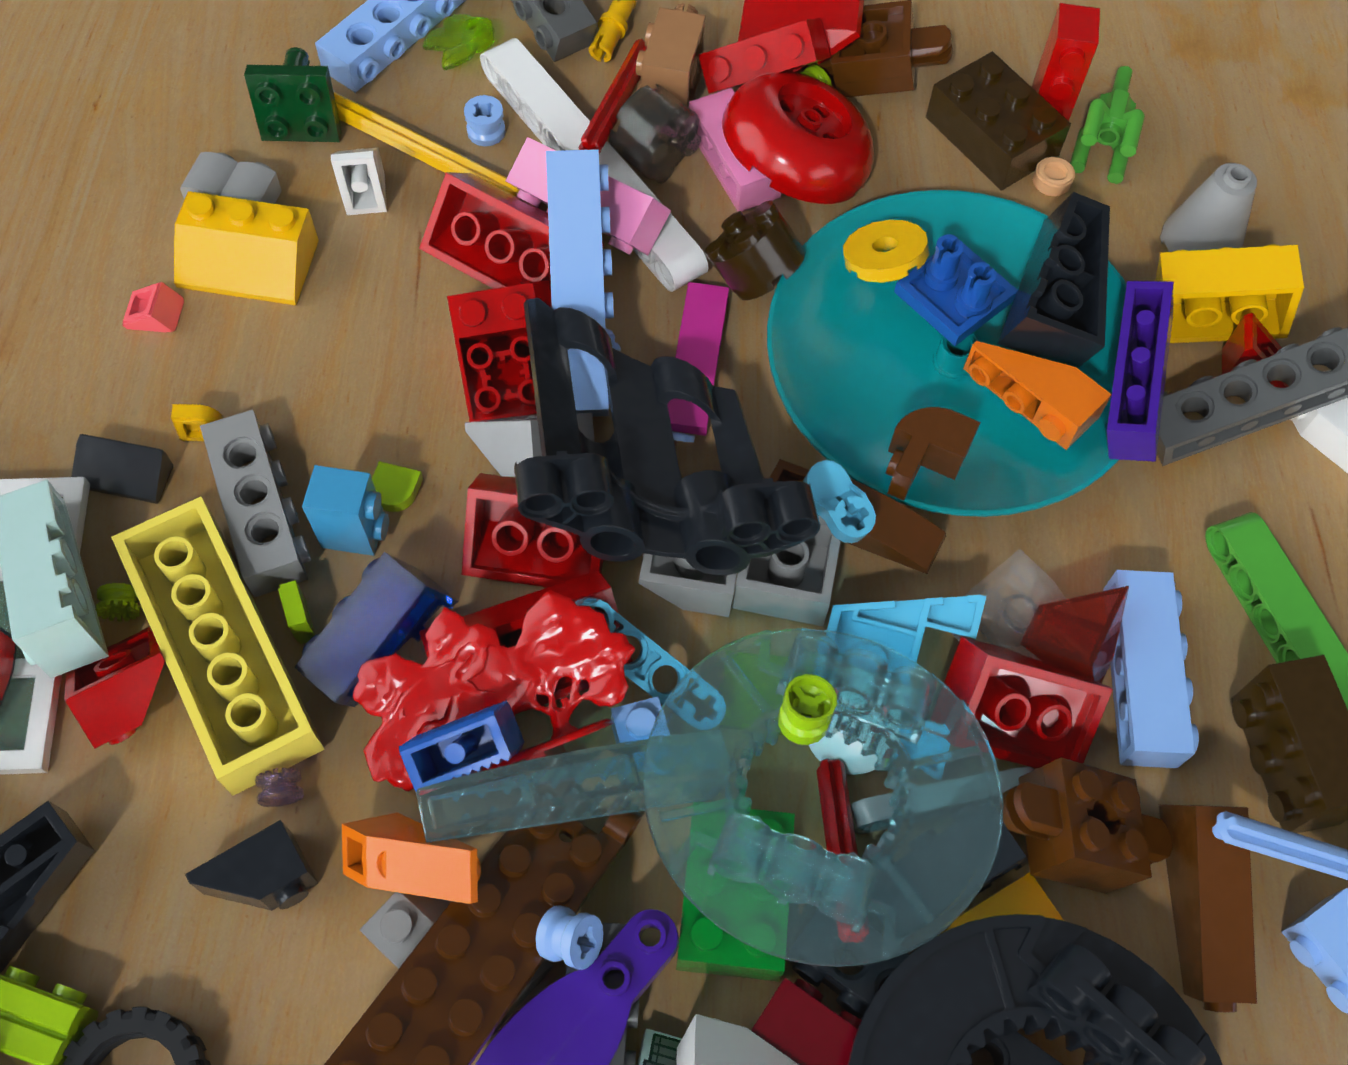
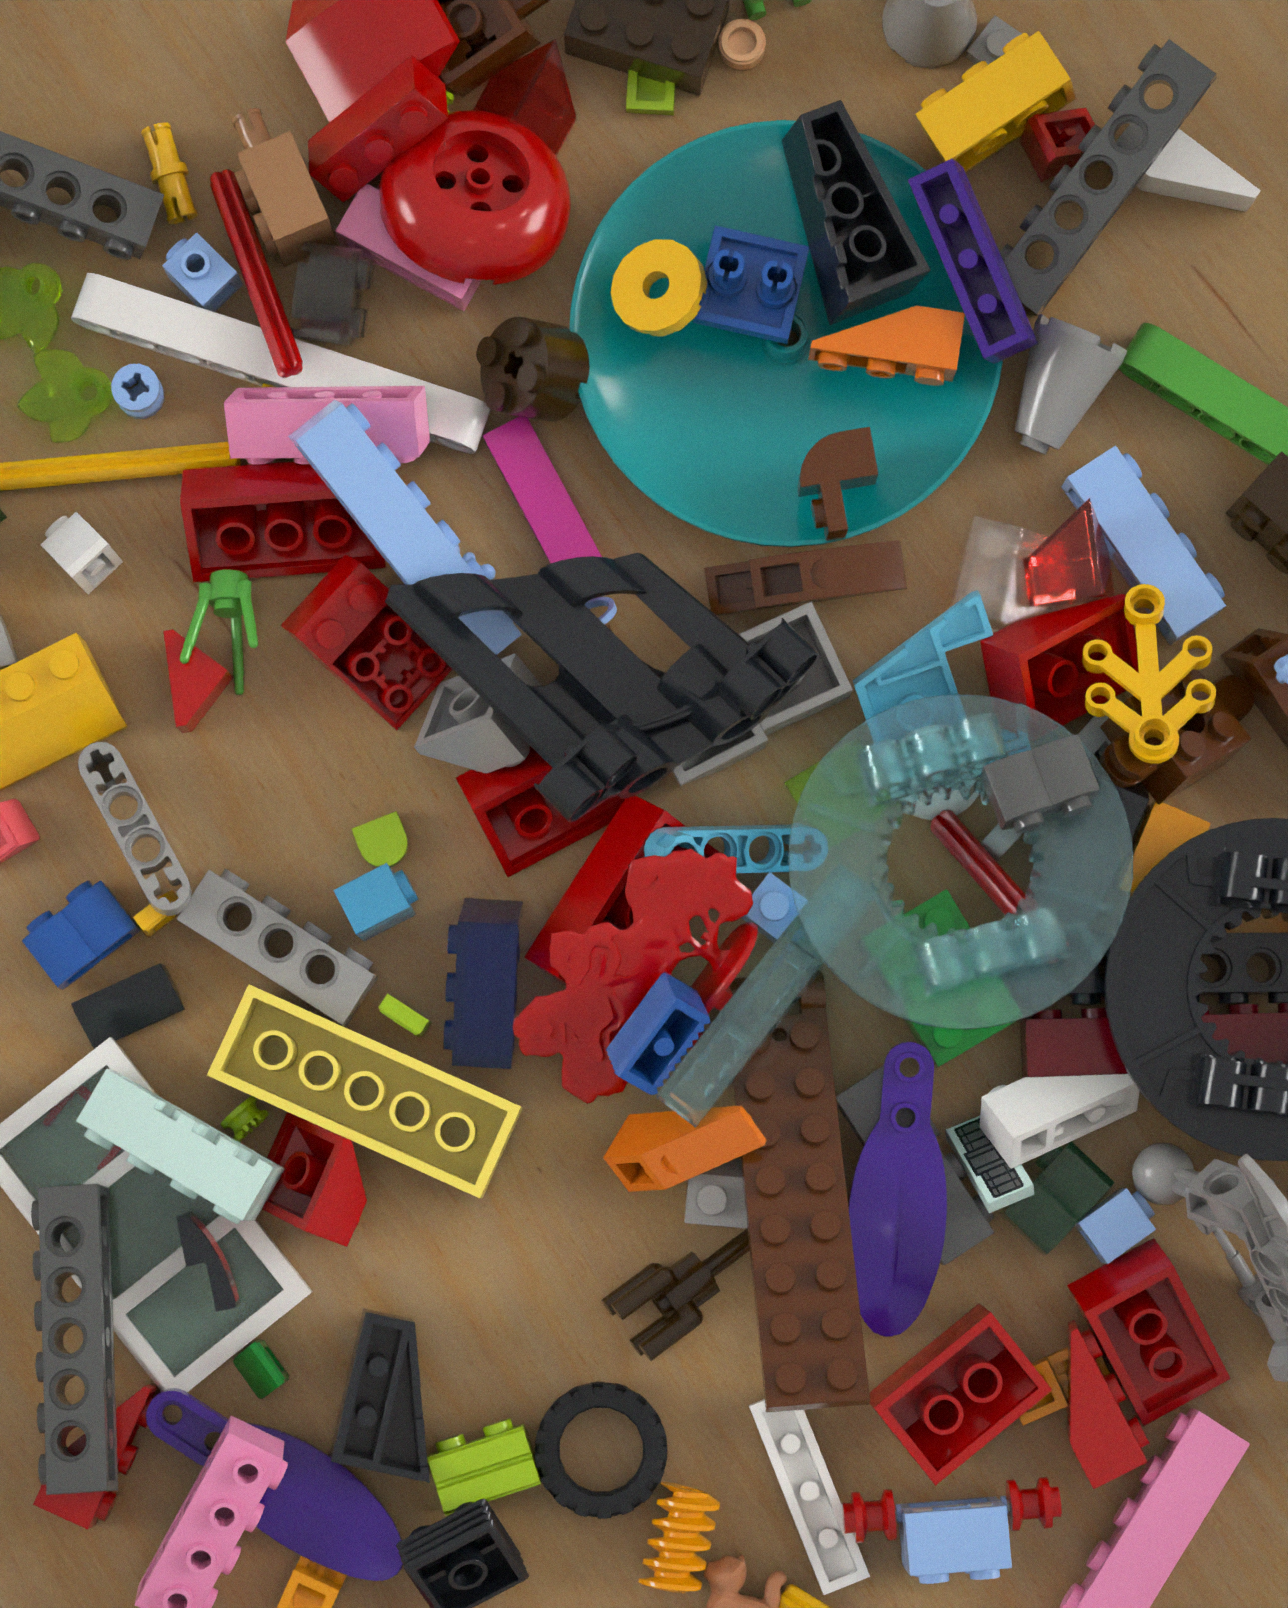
camera: 35 degrees left, 20 degrees up
(131, 400) = (80, 933): none -> blue brick
(242, 299) = (139, 826): none -> light grey beam
(258, 872) = (562, 1237): black slope -> none
(279, 788) = (517, 1164): bush -> none
(307, 993) = (675, 1293): none -> dark brown plant
(357, 299) = (193, 684): none -> red slope
(429, 265) = (231, 598): none -> bright green plant
(439, 100) = (59, 397): none -> clear neon green plate
(569, 937) = (850, 1112): light blue wheel -> none
(584, 80) = (201, 273): none -> light blue brick
(811, 698) = (914, 803): lime wheel -> none
(840, 502) = (820, 599): medium azure piece -> none
(891, 120) = (533, 95): none -> clear red slope
(938, 763) = (1040, 784): none -> dark grey brick
(965, 169) = (649, 96): none -> lime tile
(1067, 795) = (1148, 683): none -> yellow plant
(1159, 506) = (1062, 381): none -> light grey cone

